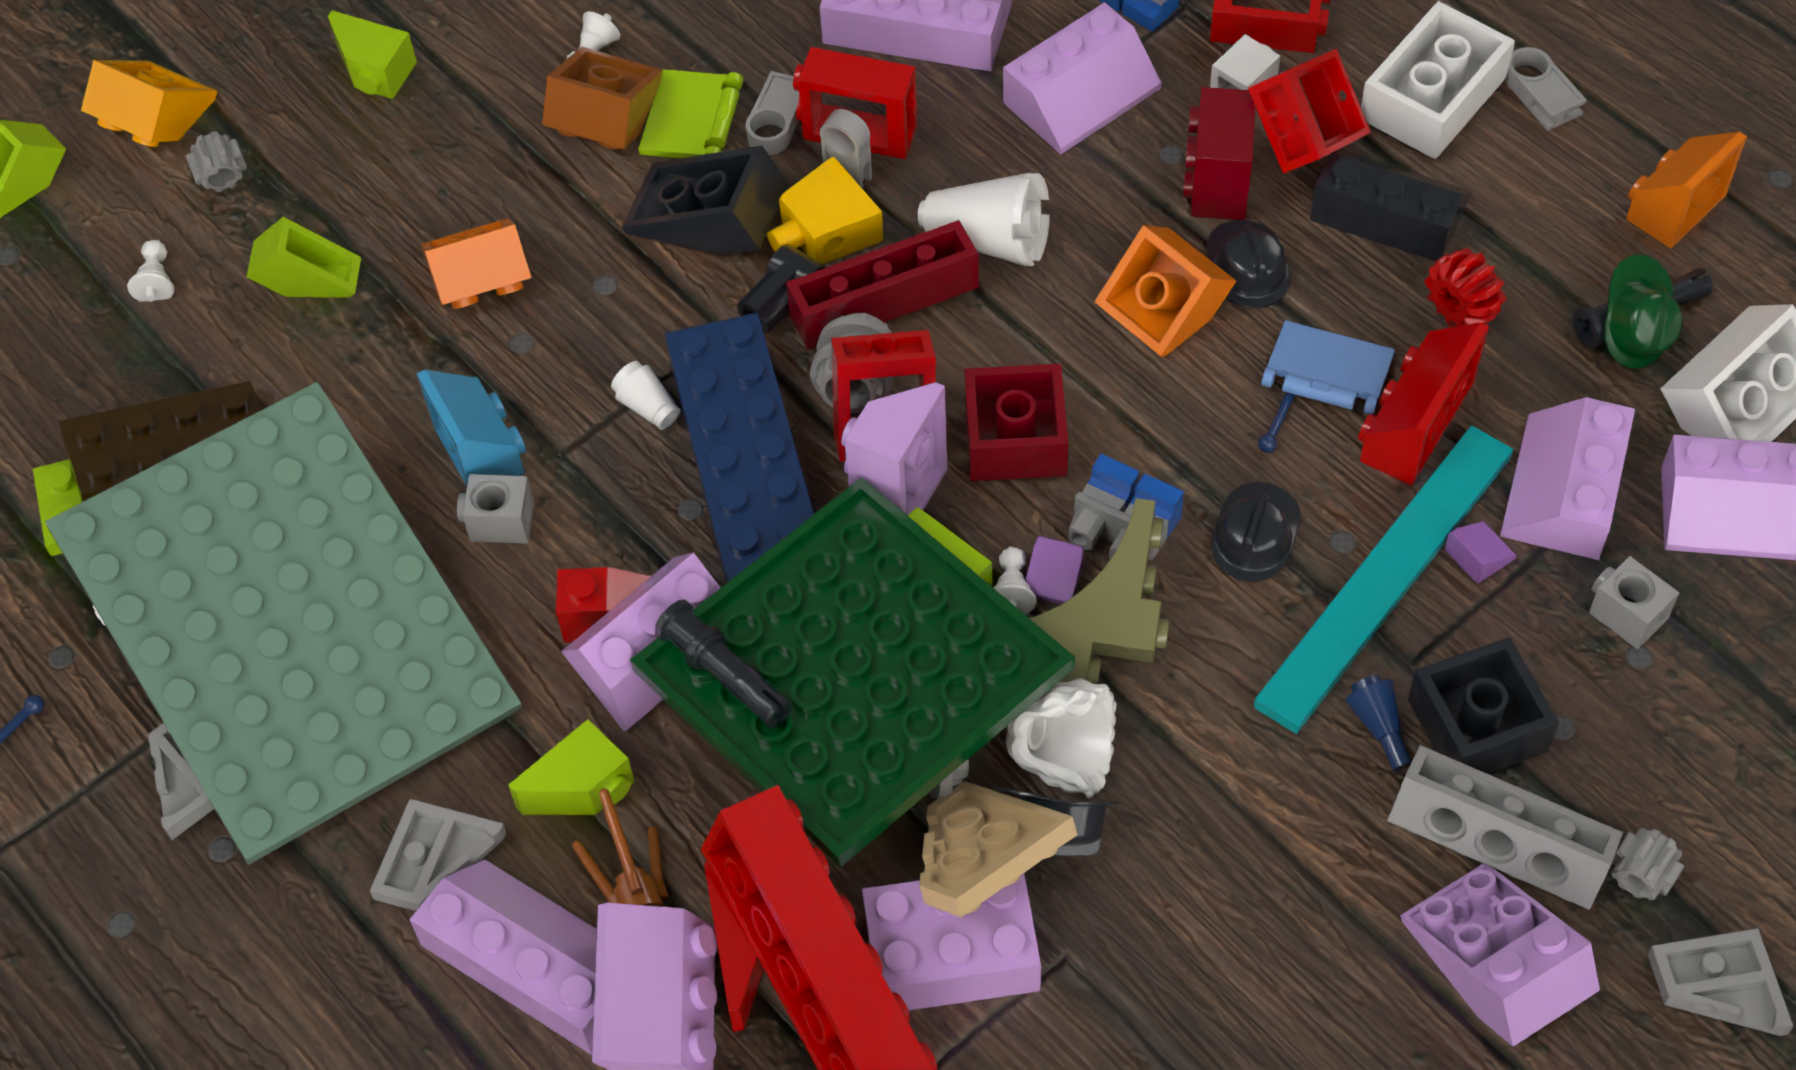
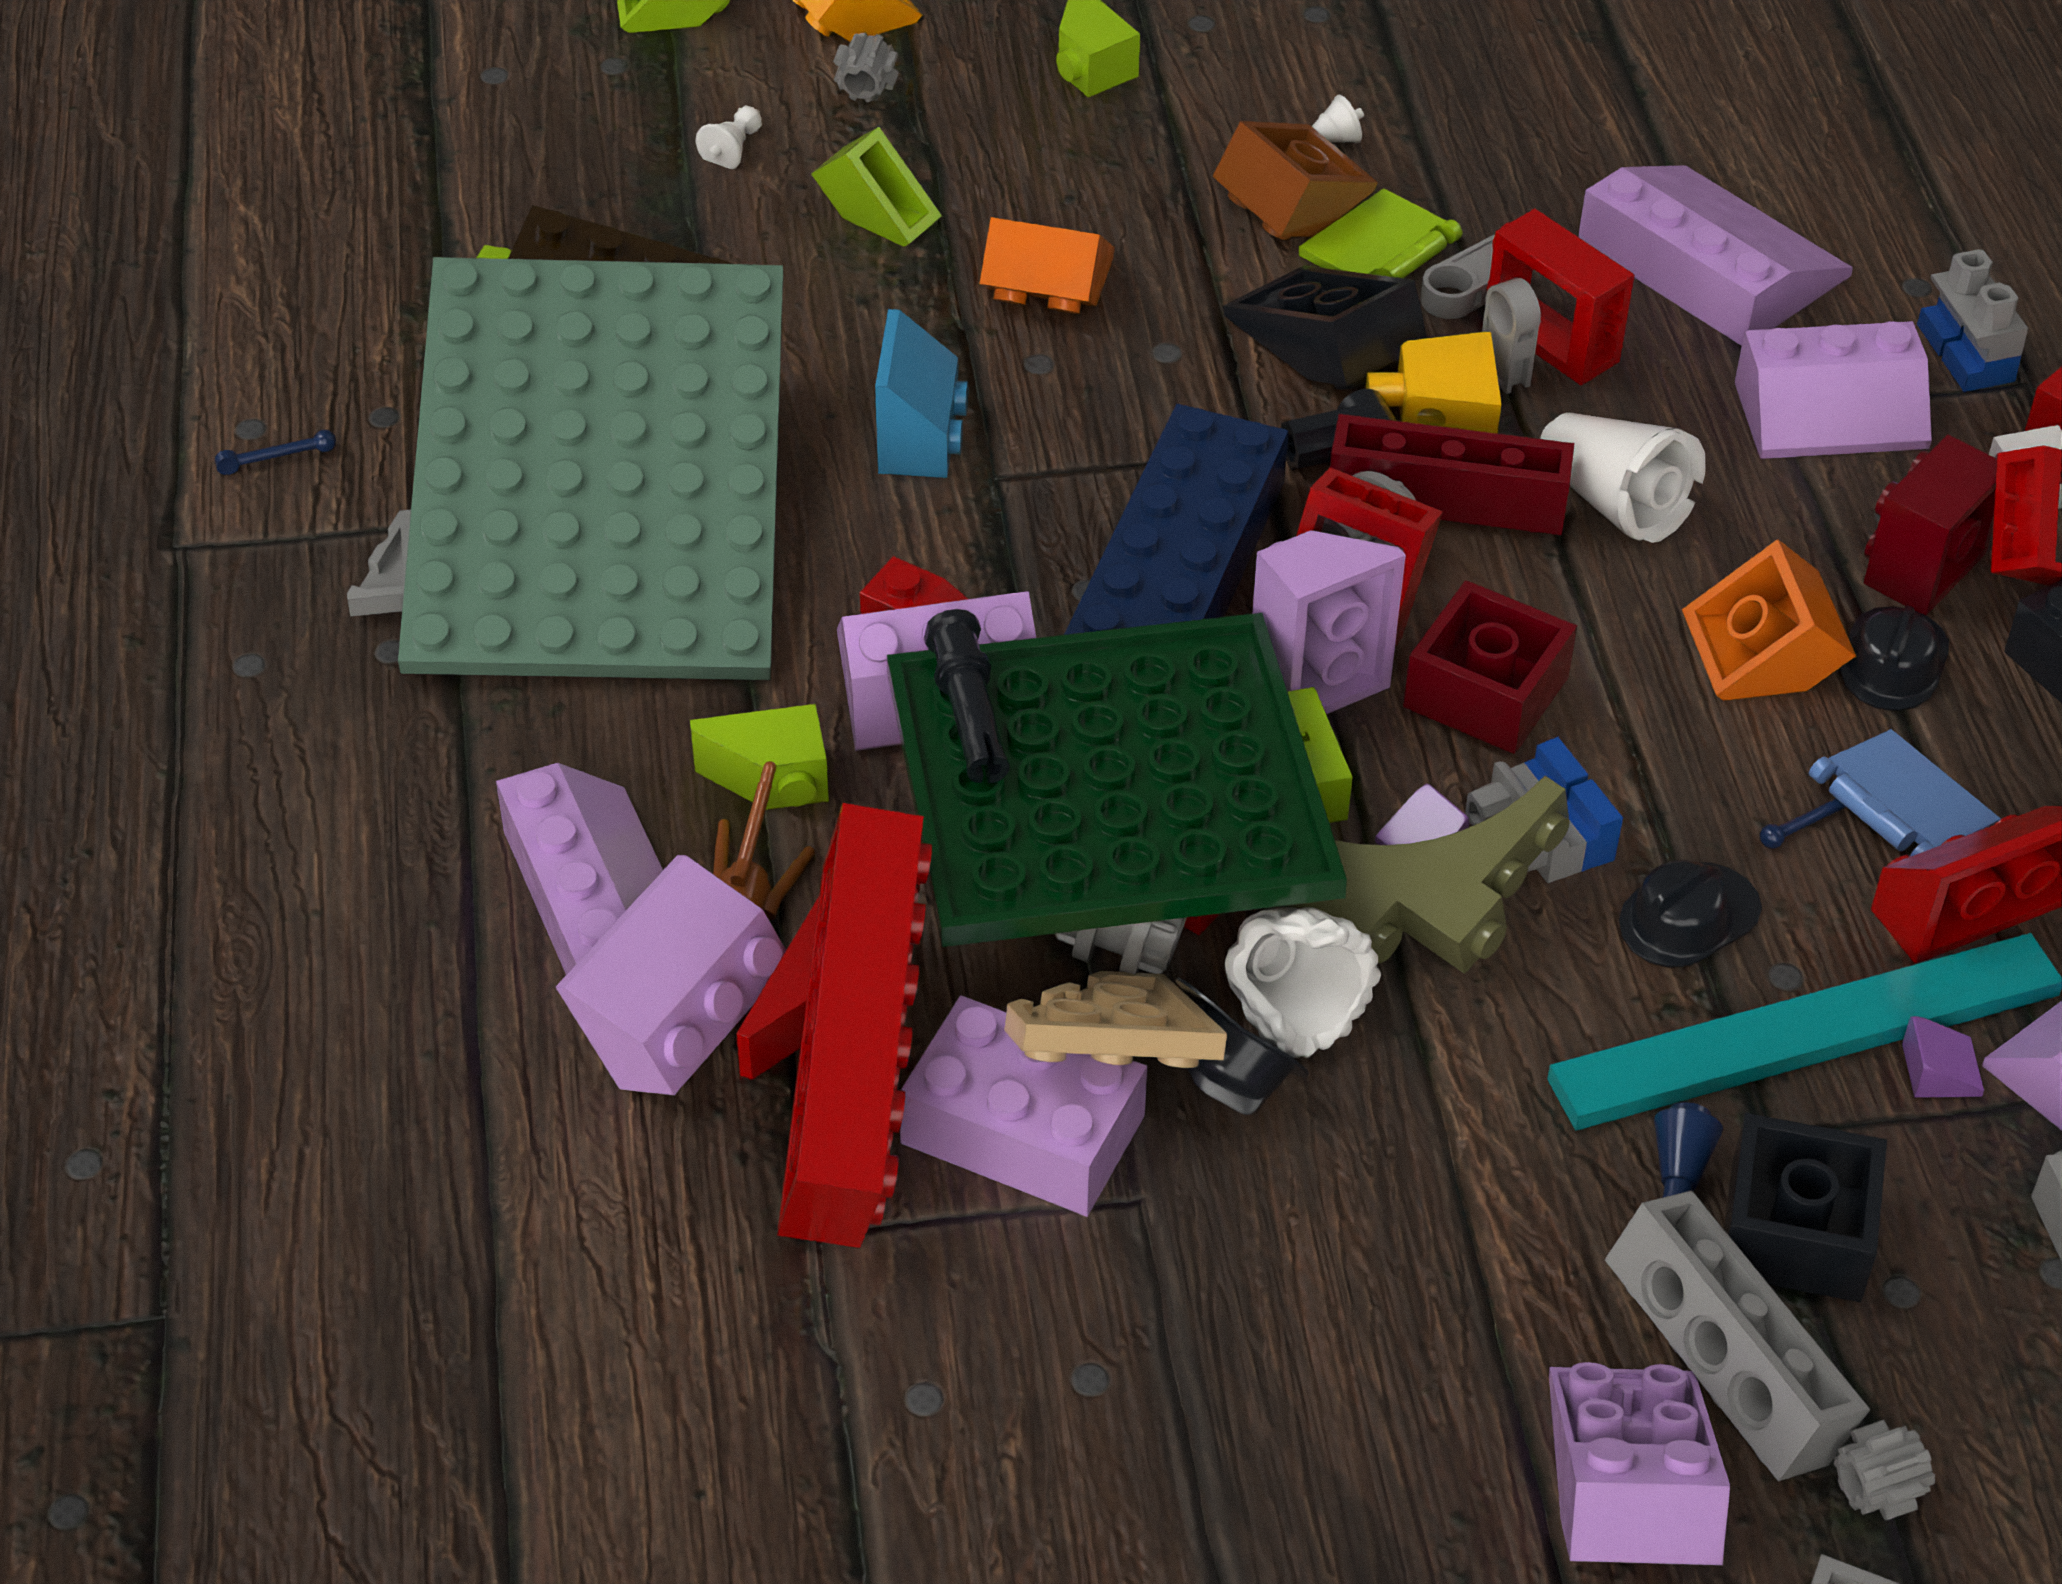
camera: 30 degrees right, 10 degrees down
(429, 847) = (583, 737): light grey wing -> none
(504, 525) = (888, 487): light grey brick -> none
(644, 394) = (1119, 456): white cone -> none
(1012, 582) = (1365, 821): white piece -> none

